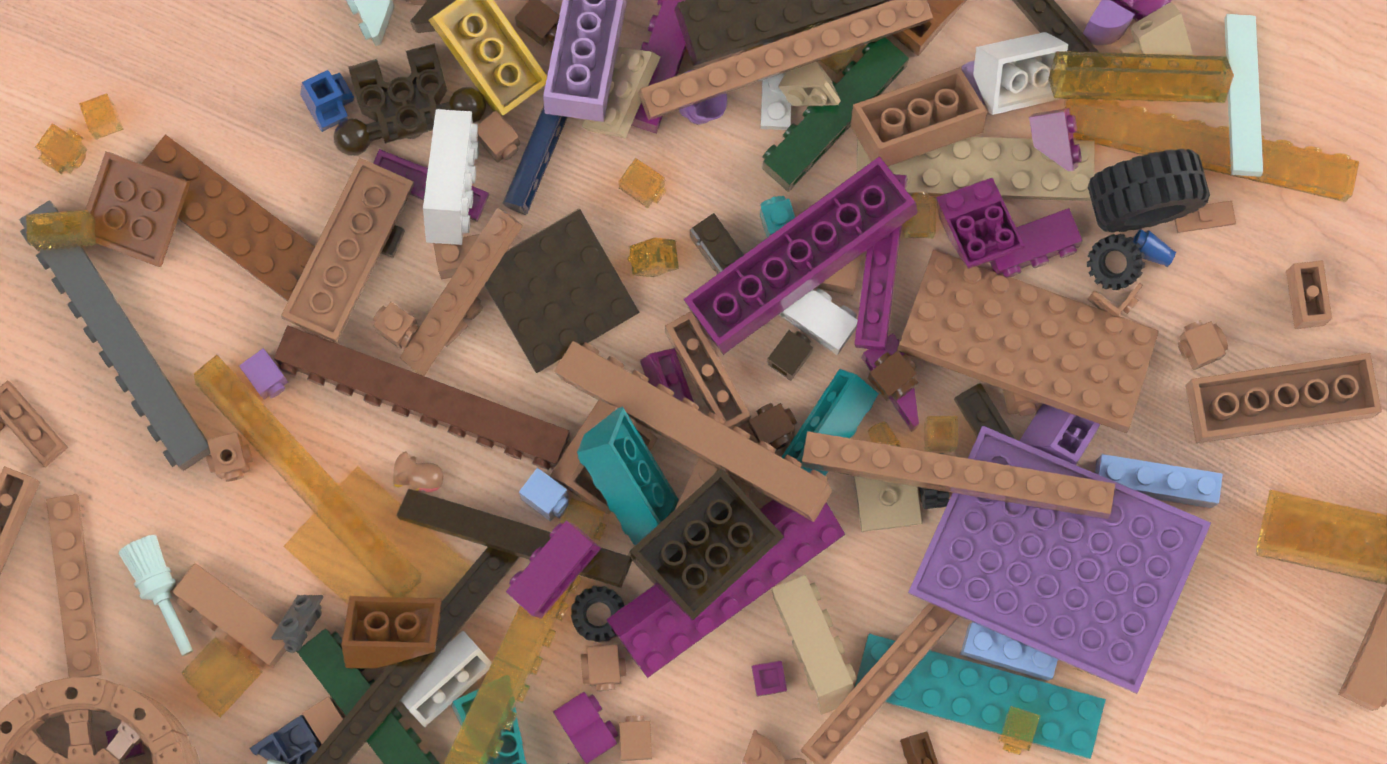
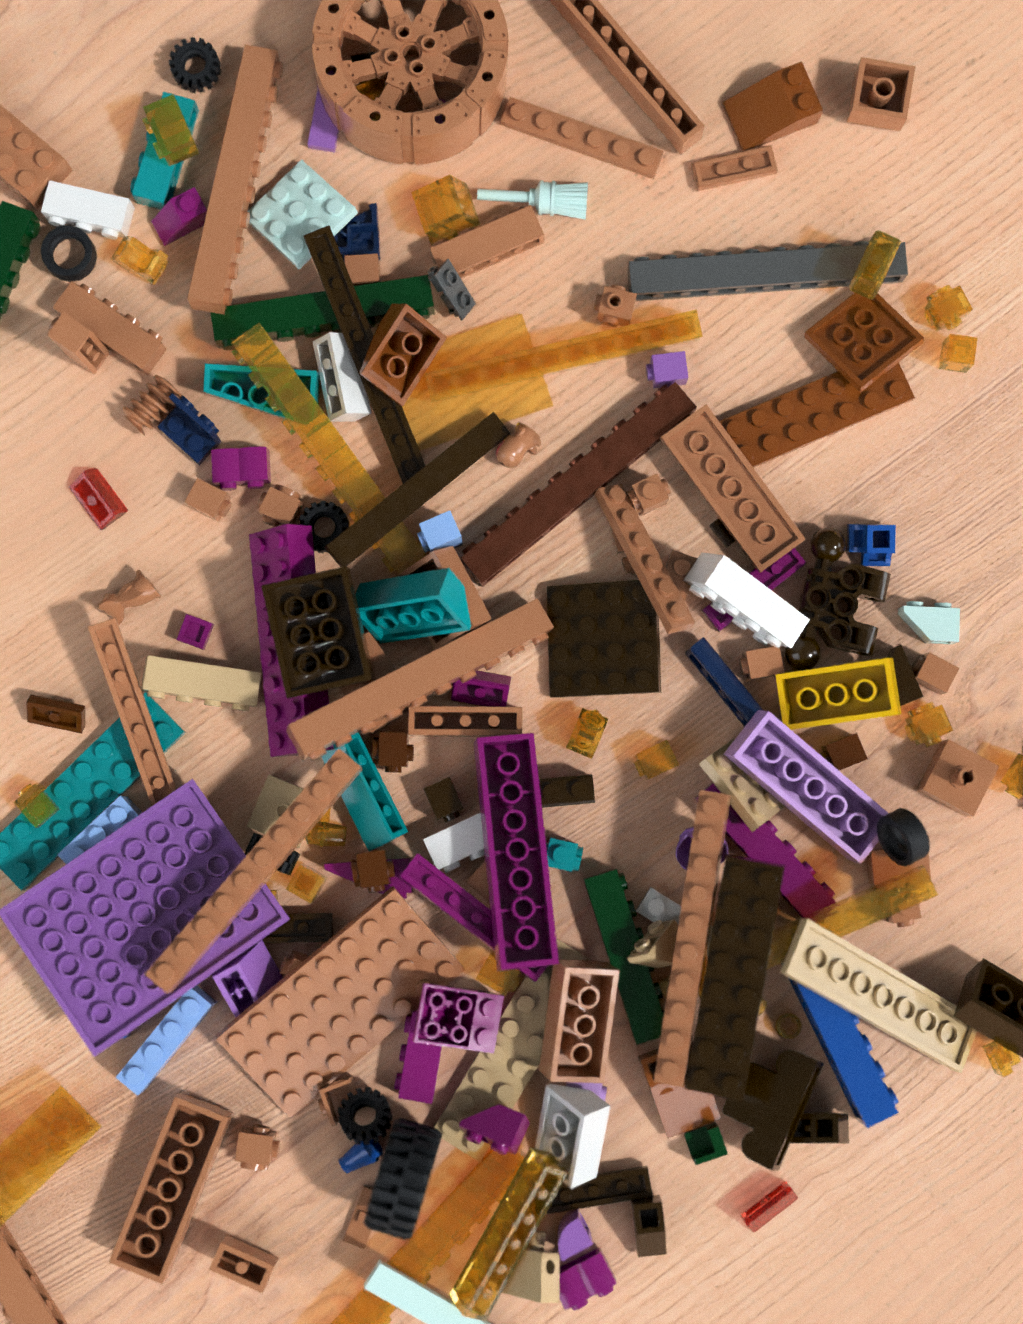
camera: 125 degrees right, 5 degrees up
(552, 569) = (369, 499): magenta brick -> none

